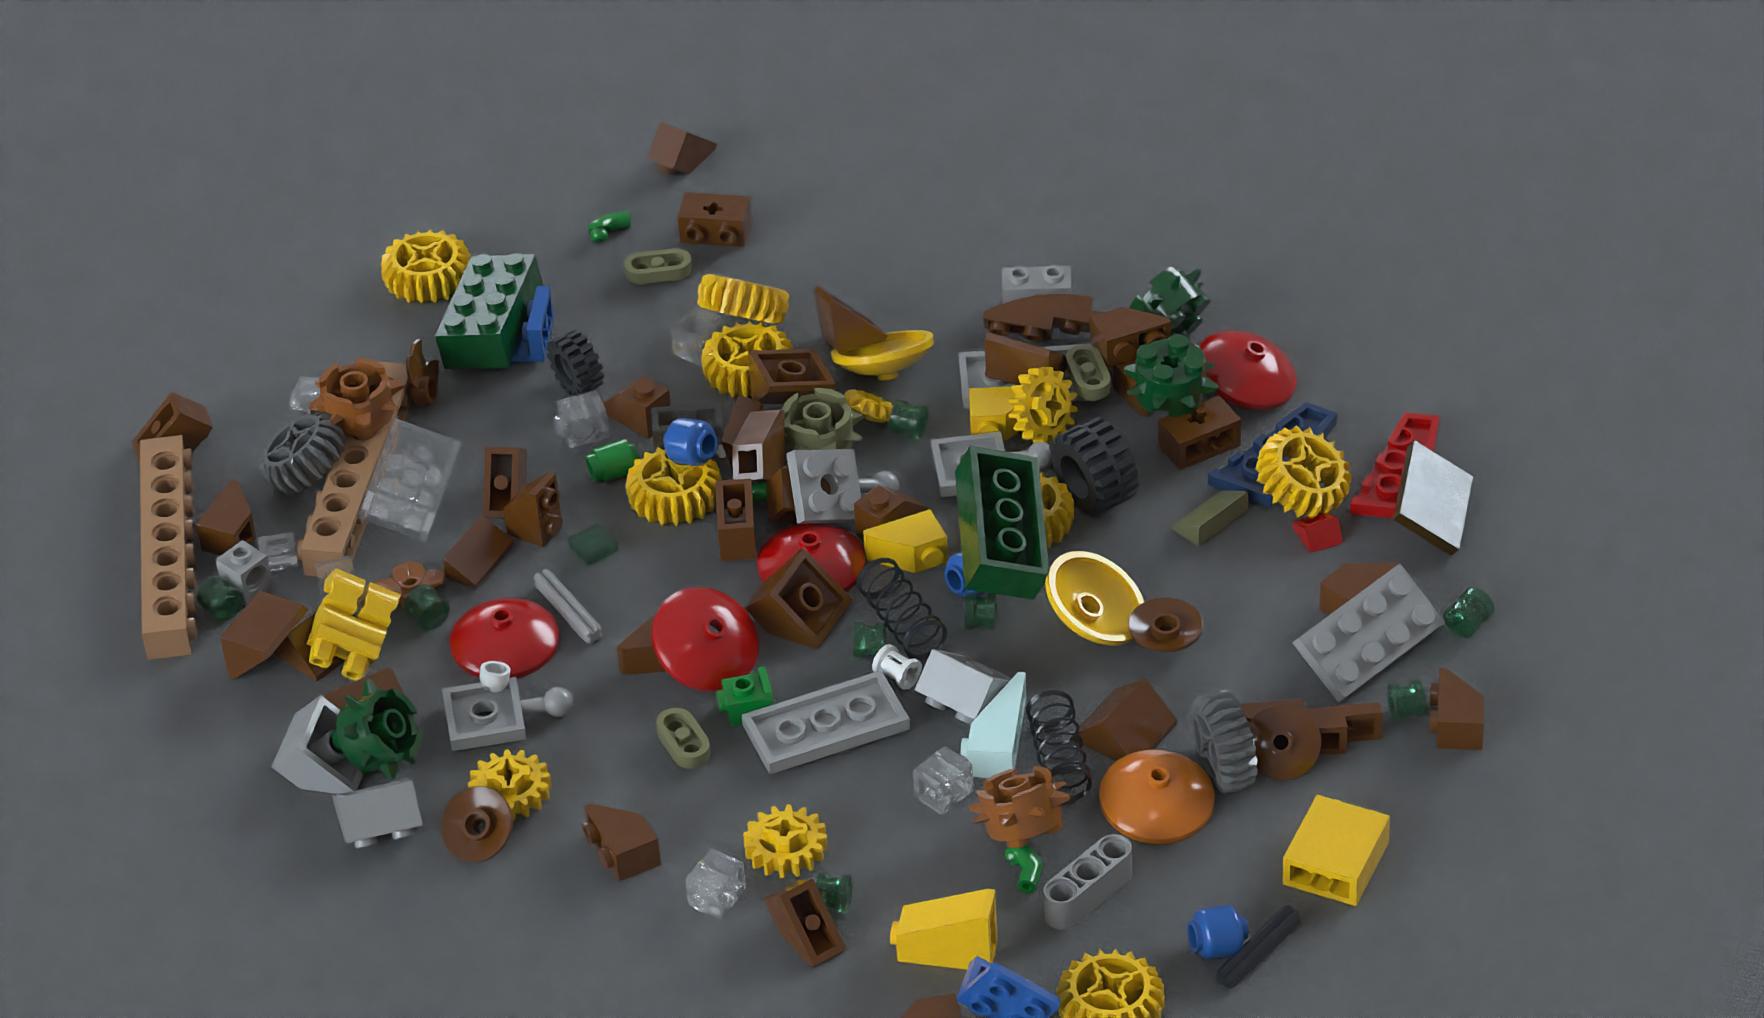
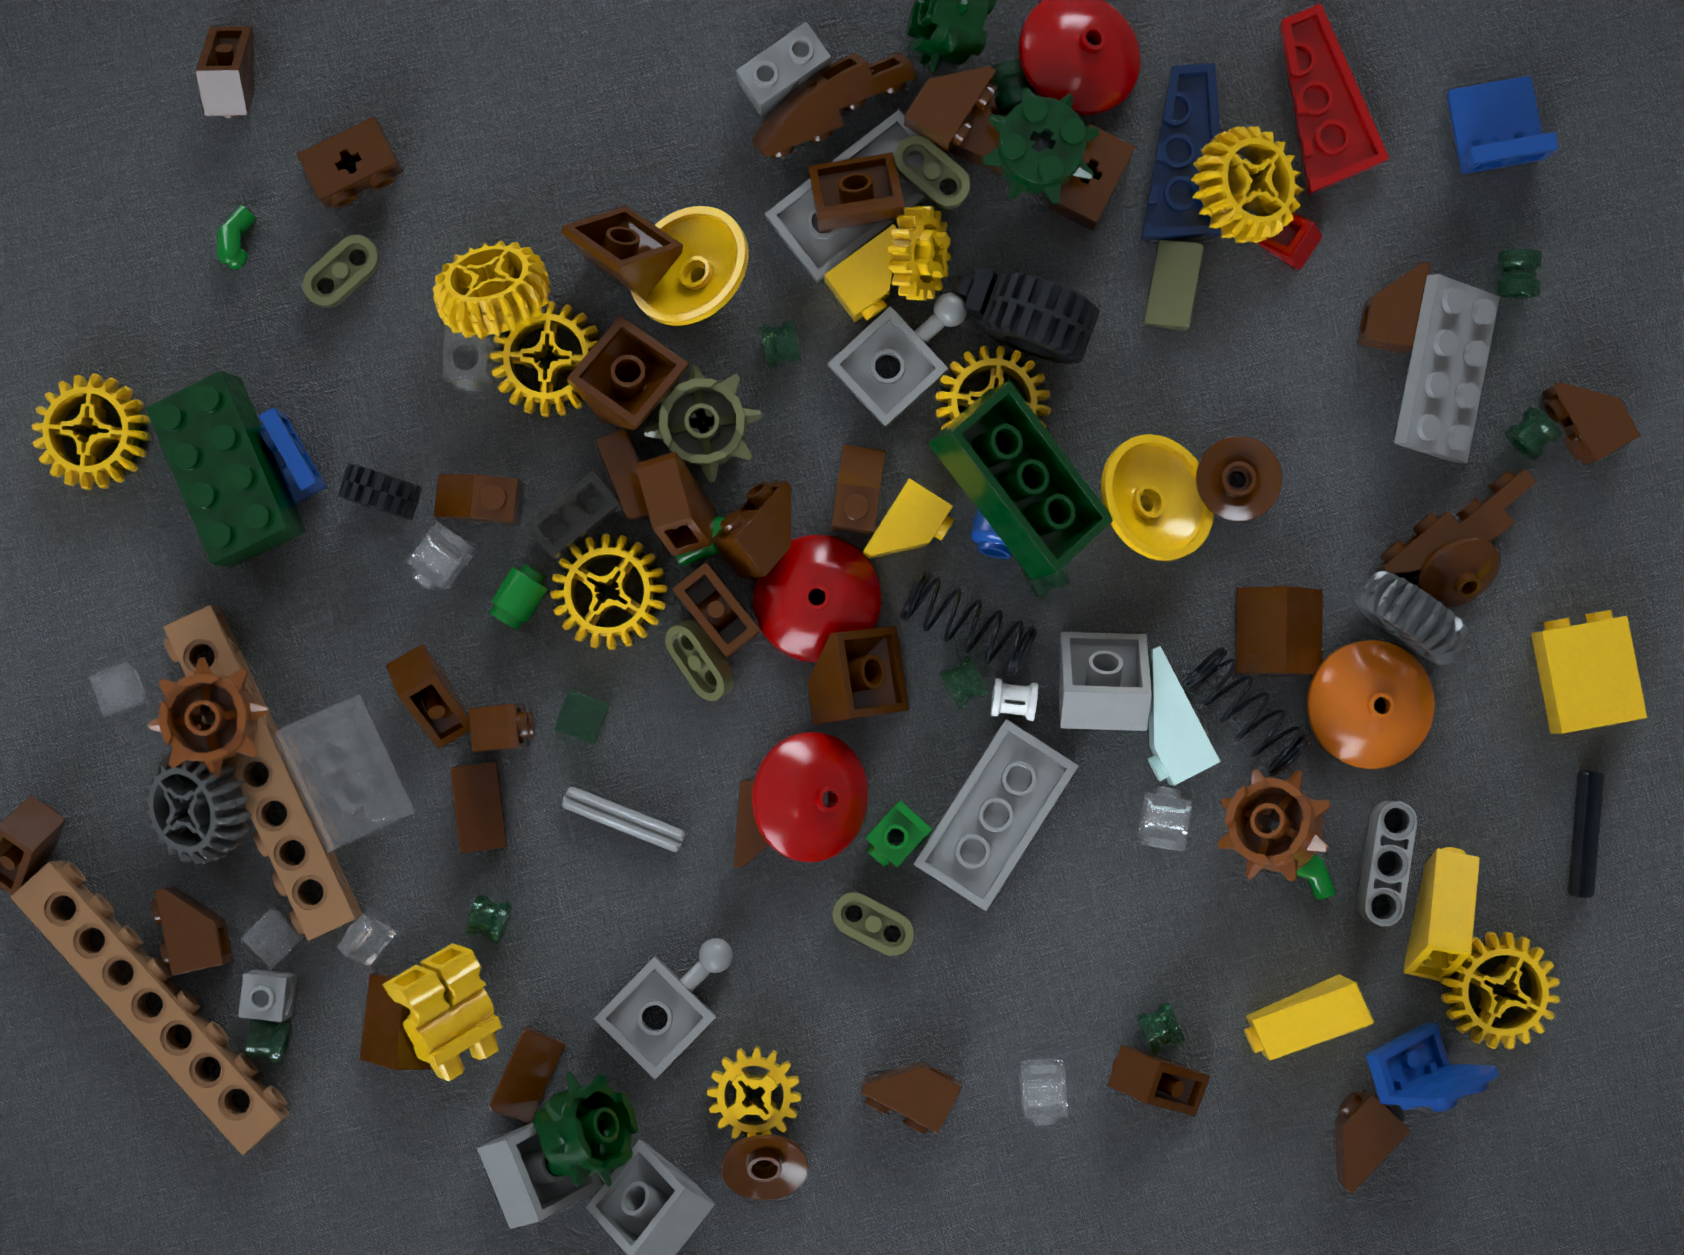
camera: 35 degrees left, 45 degrees up
(258, 631) = (368, 1079): reddish brown slope -> none
(410, 575) = (433, 886): dark orange plate -> none
(422, 376) = (229, 612): reddish brown plate -> none
(494, 676) = (633, 983): white hinge -> none
(505, 632) = (620, 889): red dish -> none
(690, 442) = (607, 553): blue head -> none
(700, 546) = (699, 660): none -> olive plate
(785, 841) = (1088, 984): yellow gear -> none
(840, 470) = (808, 514): light grey plate -> none
(873, 407) = (740, 361): yellow gear -> none
(1102, 920) = (1443, 915): none -> yellow slope
(1217, 932) = (1548, 852): blue head -> none
(1433, 498) = (1391, 135): tile -> none
(1516, 534) = (1498, 125): none -> blue bracket

